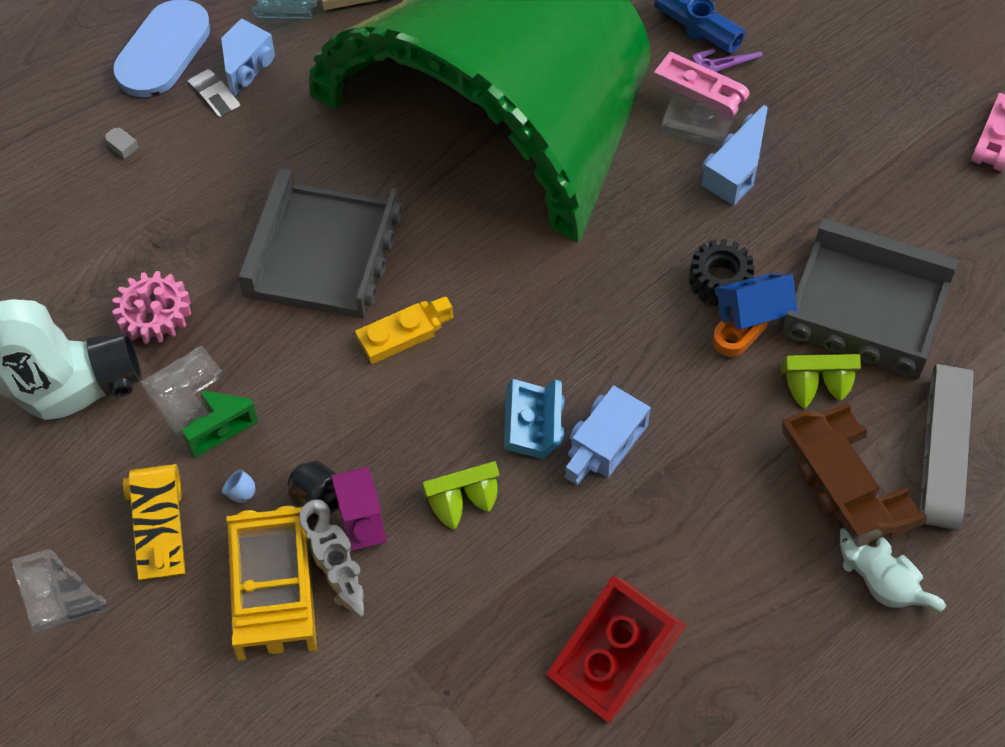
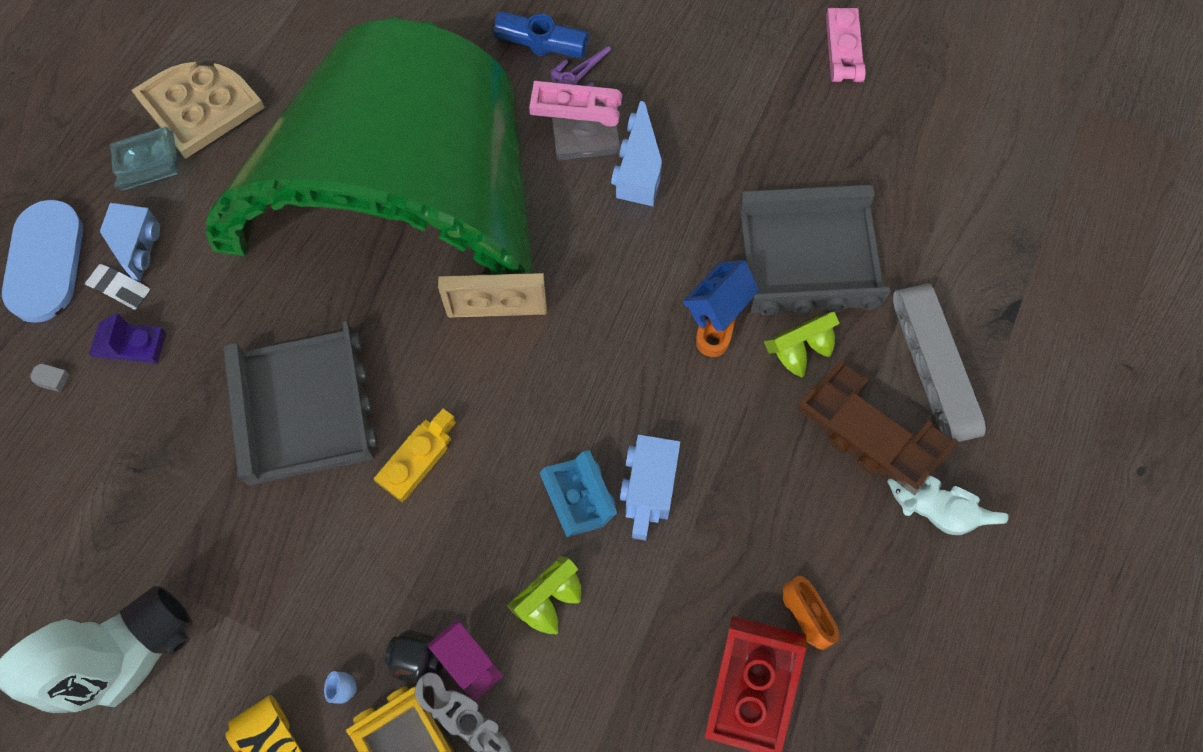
camera: 25 degrees left, 10 degrees up
(136, 319) = (146, 530): bright pink gear -> none
(175, 388) = (227, 612): clear plate -> none
(199, 138) = (126, 341): none -> dark purple slope
(226, 418) = (295, 622): green slope -> none
(540, 217) = (493, 295): none -> tan tile
(702, 609) = (810, 613): none -> orange plate
(715, 256) = (669, 261): black tyre -> none

